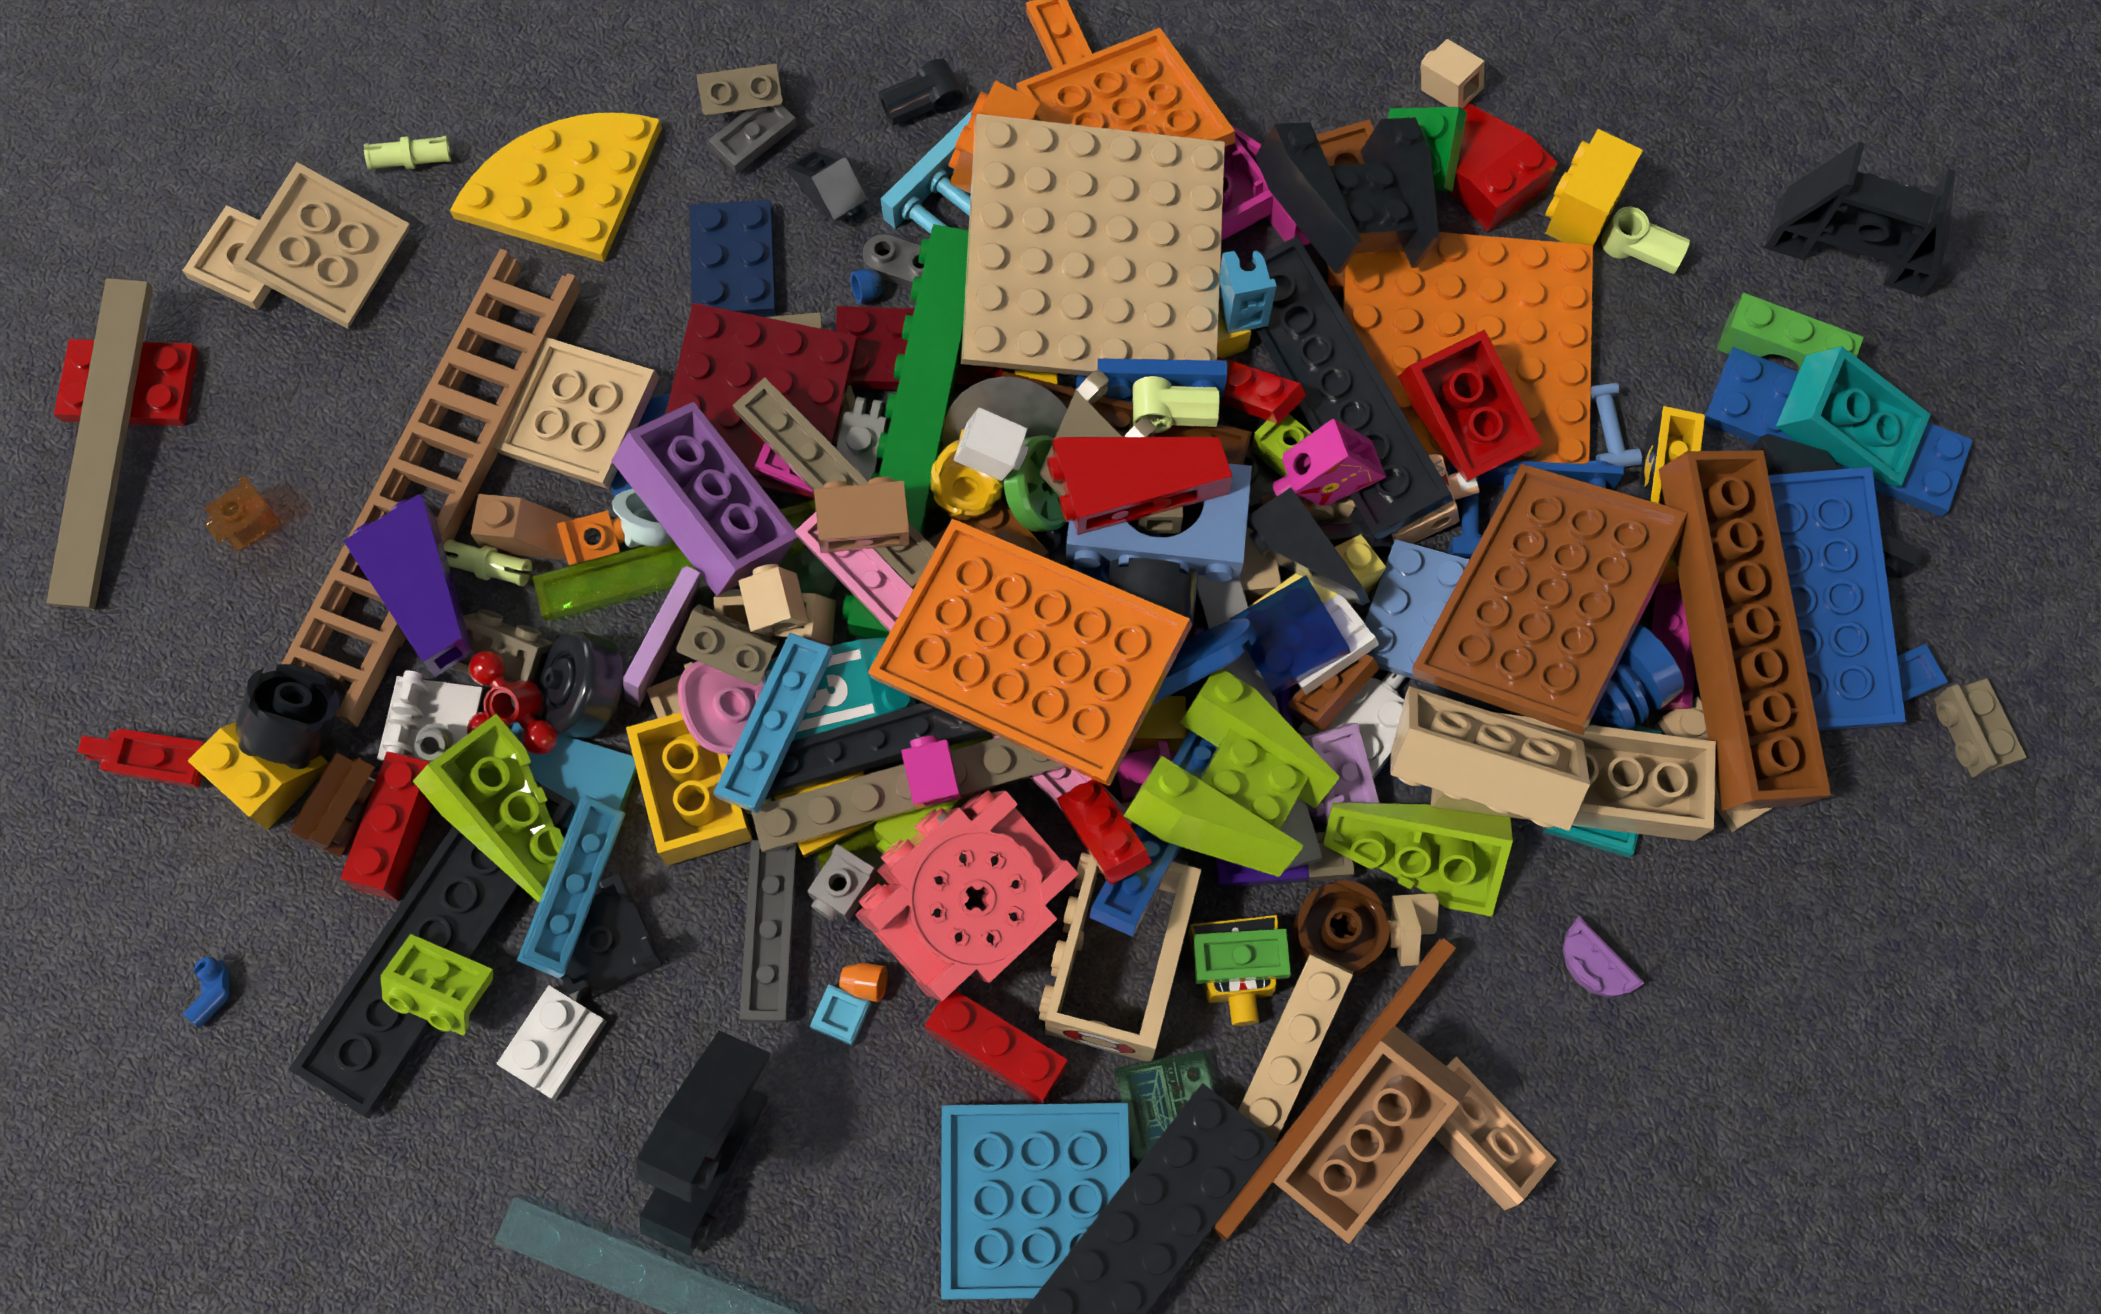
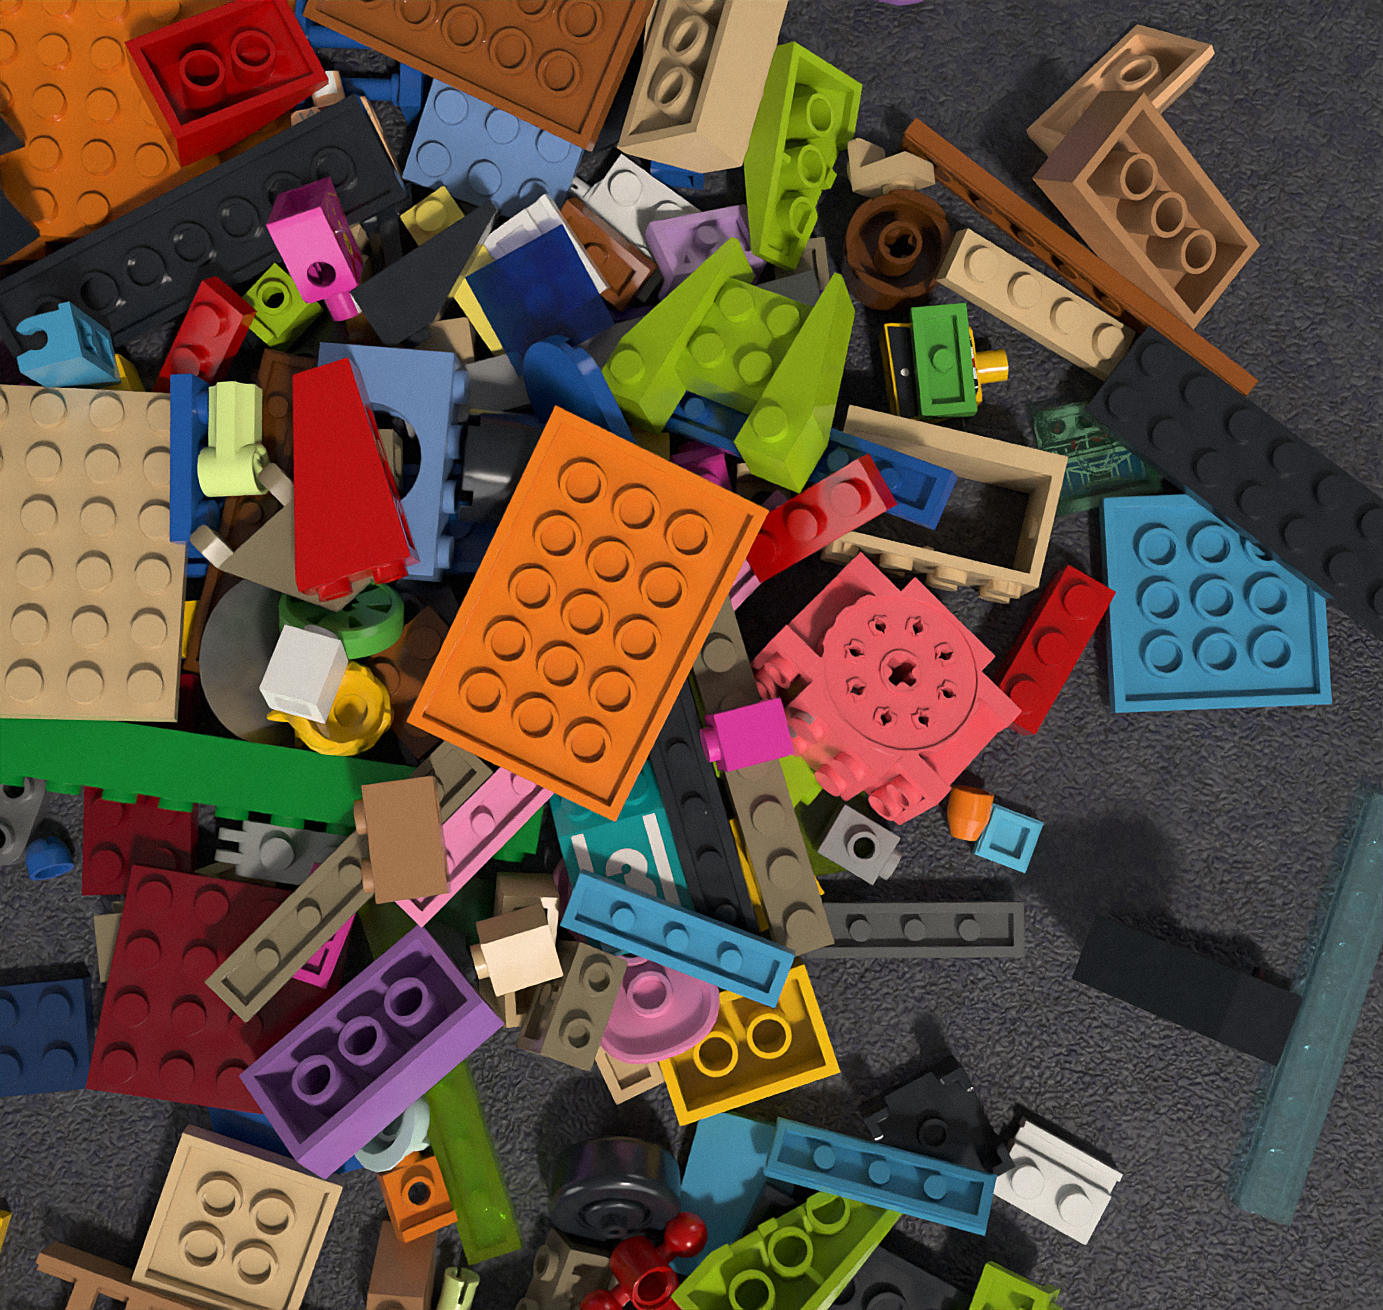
camera: 90 degrees left, 15 degrees up
(661, 636) = (552, 1091): lavender tile -> none

